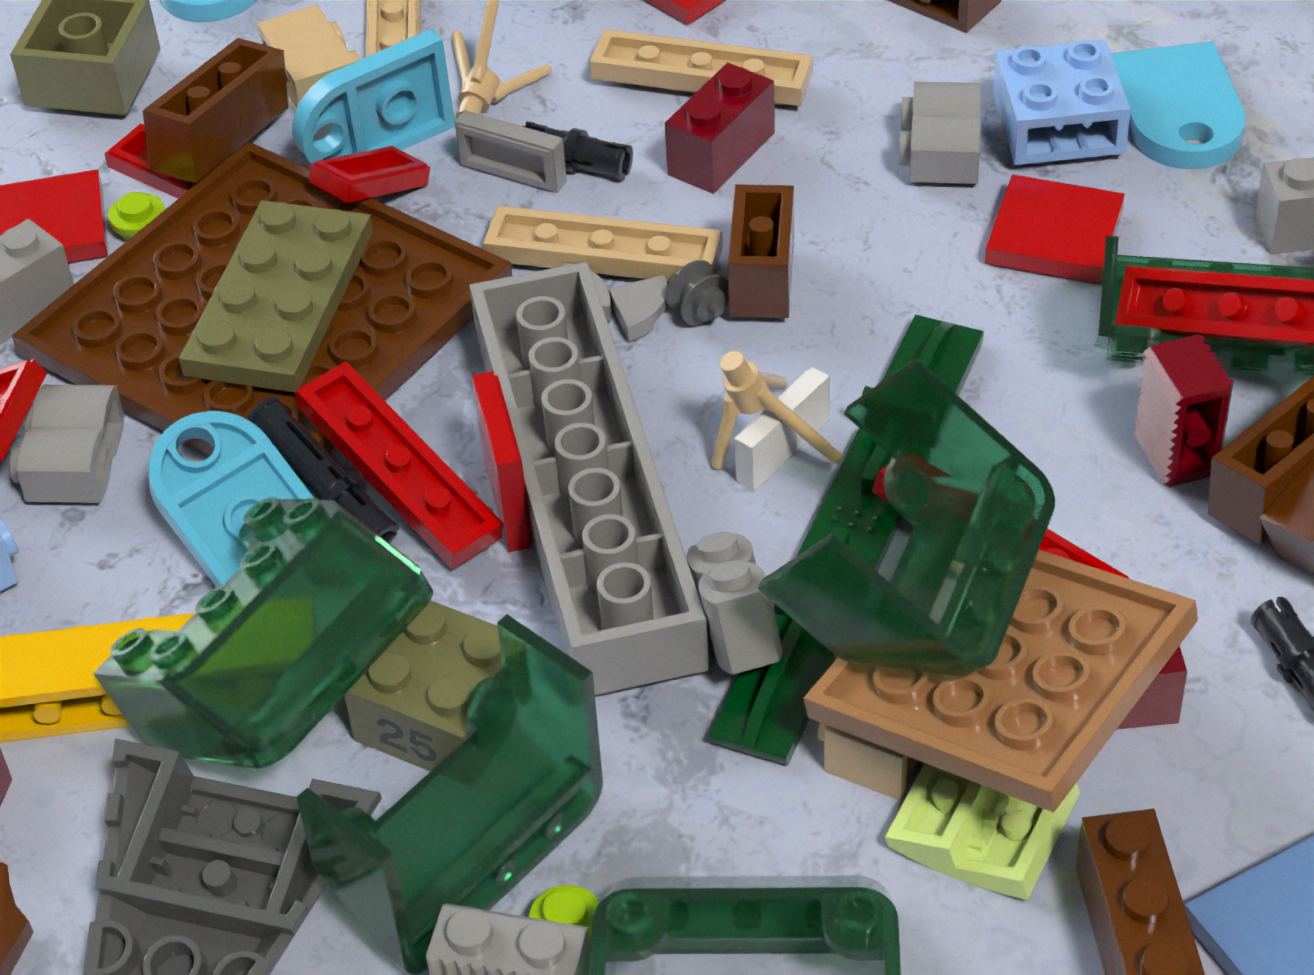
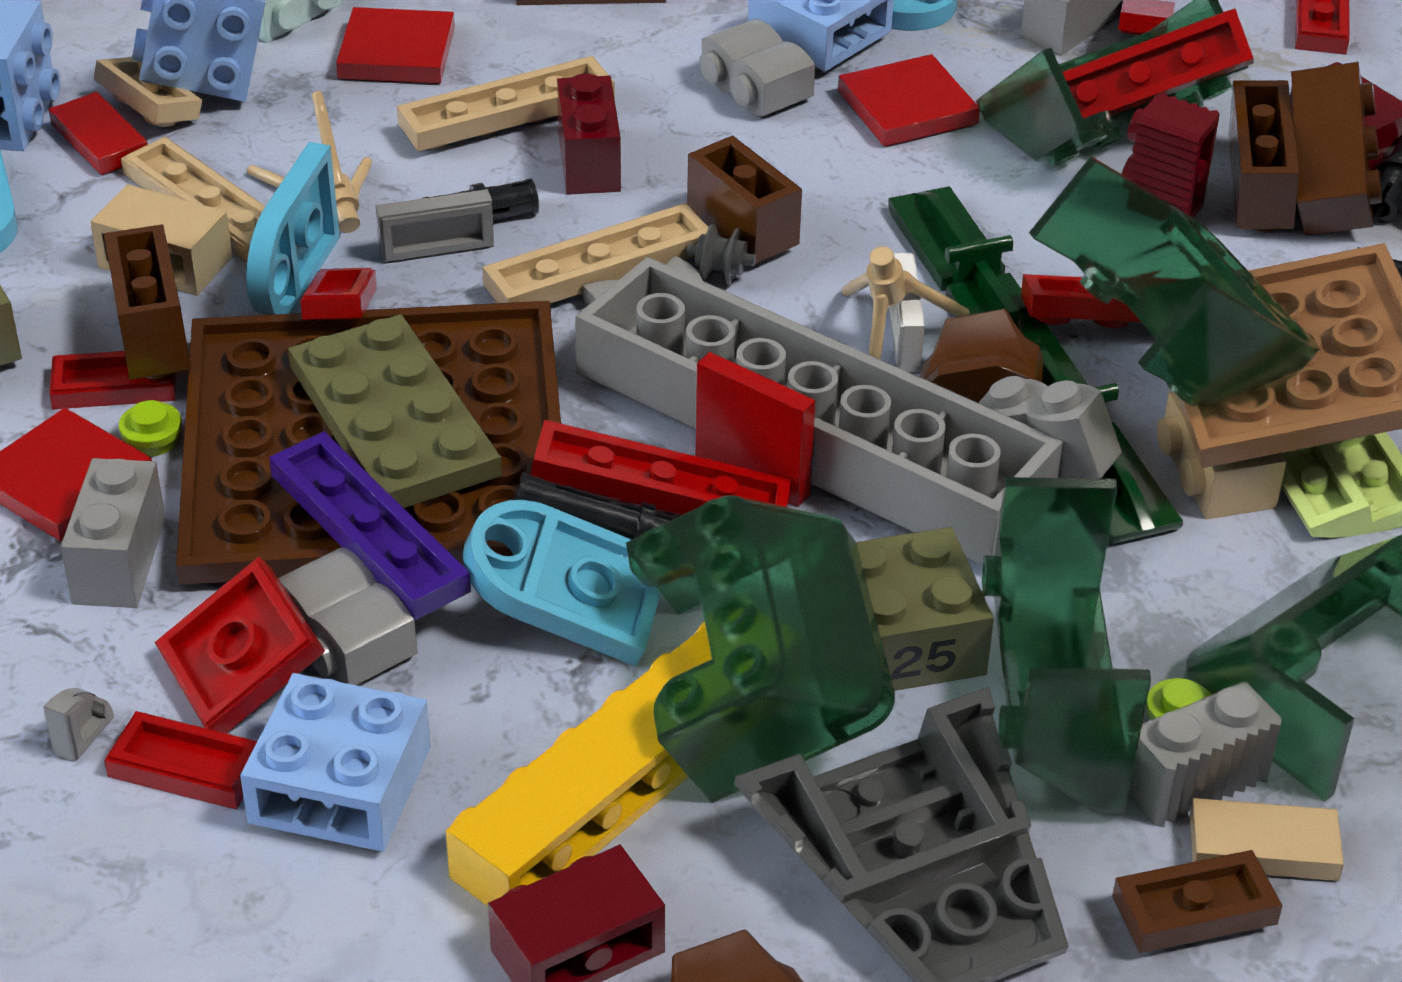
camera: 45 degrees left, 5 degrees down
(142, 378) = (370, 524): none -> dark purple plate
(774, 510) = (980, 351): none -> reddish brown slope

